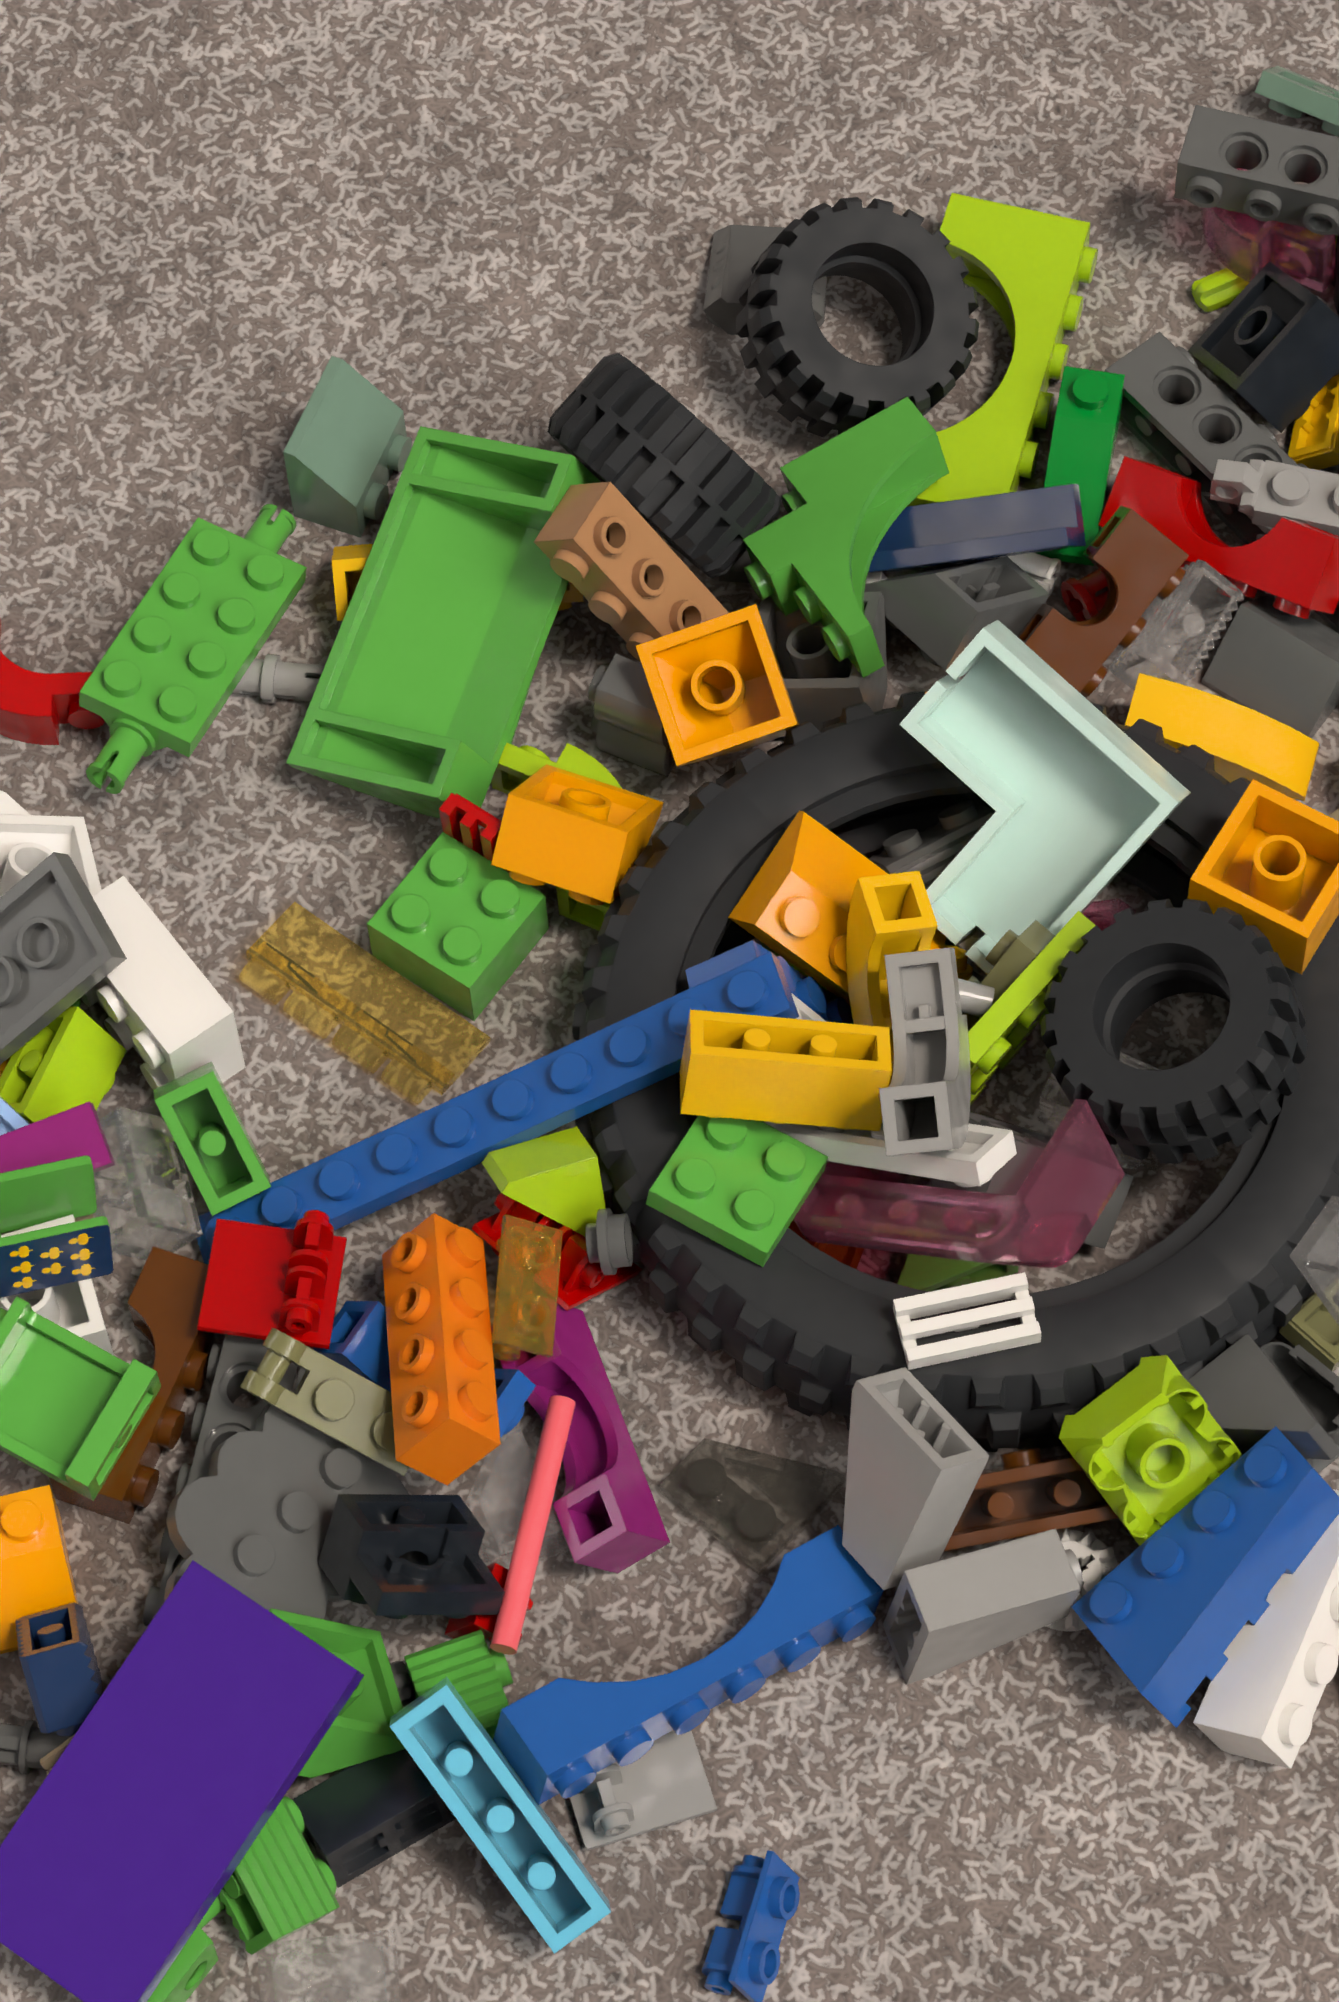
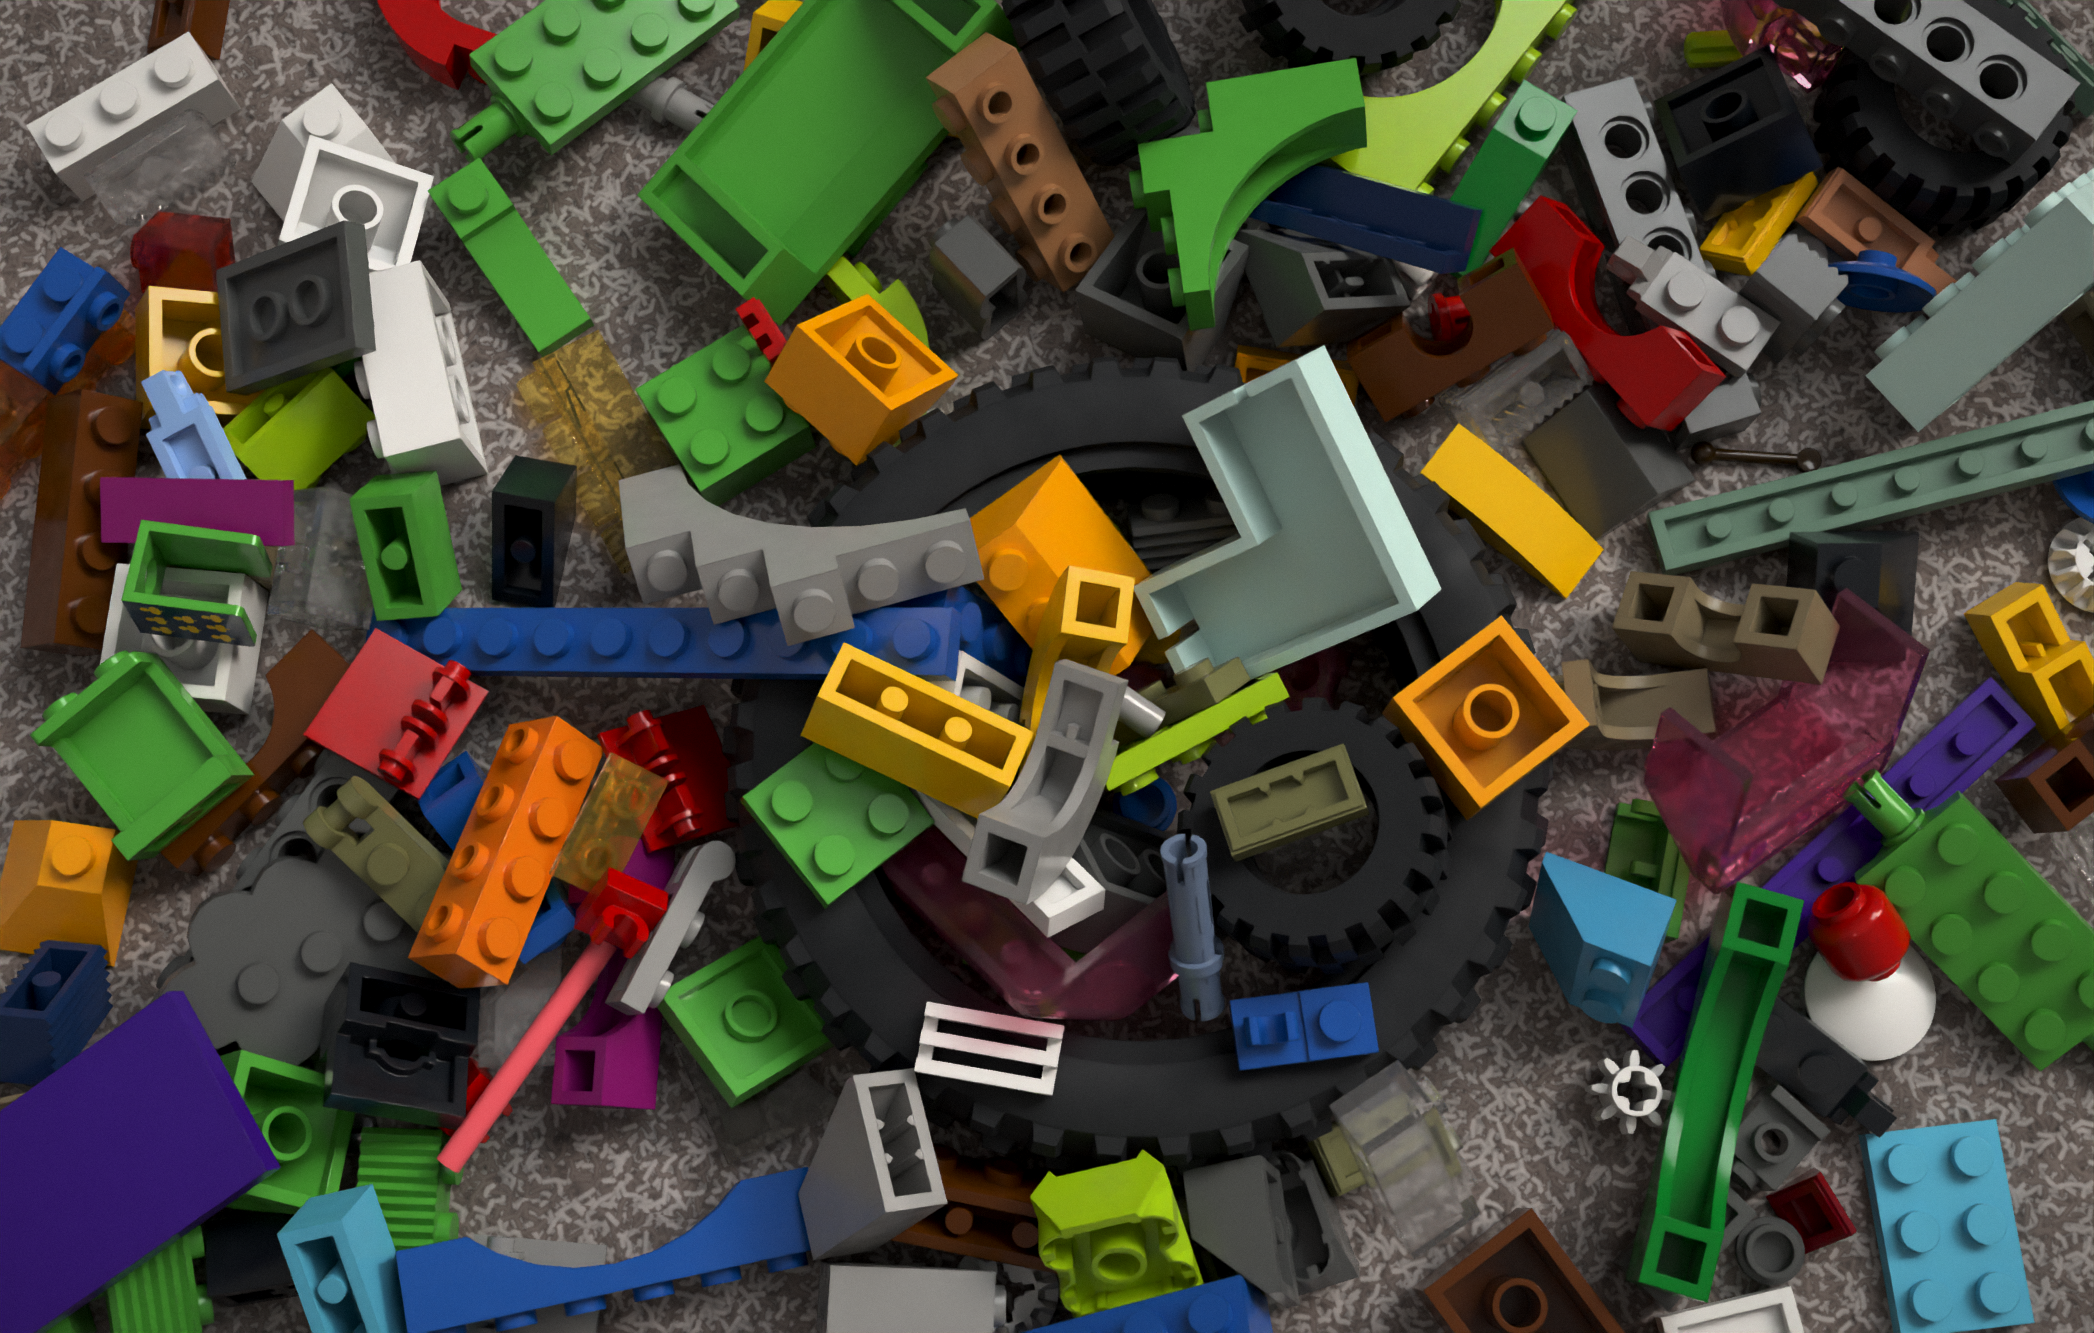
camera: 20 degrees right, 15 degrees up
(184, 865) = (510, 257): none -> bright green slope
(317, 1089) = (532, 530): none -> black slope
(552, 1176) = (679, 725): lime slope -> none
(570, 1355) = (621, 911): none -> red tile
(610, 1241) = (705, 812): dark grey plate -> none
(619, 1361) = (646, 976): none -> light grey plate
(624, 984) = (805, 572): none -> light grey arch
(717, 687) = (1045, 291): light orange slope -> none
(722, 1426) = (744, 1021): none -> bright green plate
(1006, 1104) = (1150, 805): none -> blue plate
(1113, 1160) = (1195, 949): none -> sand blue pin
(1140, 992) = (1289, 802): none -> olive plate
(1236, 1196) = (1303, 1026): none -> blue plate

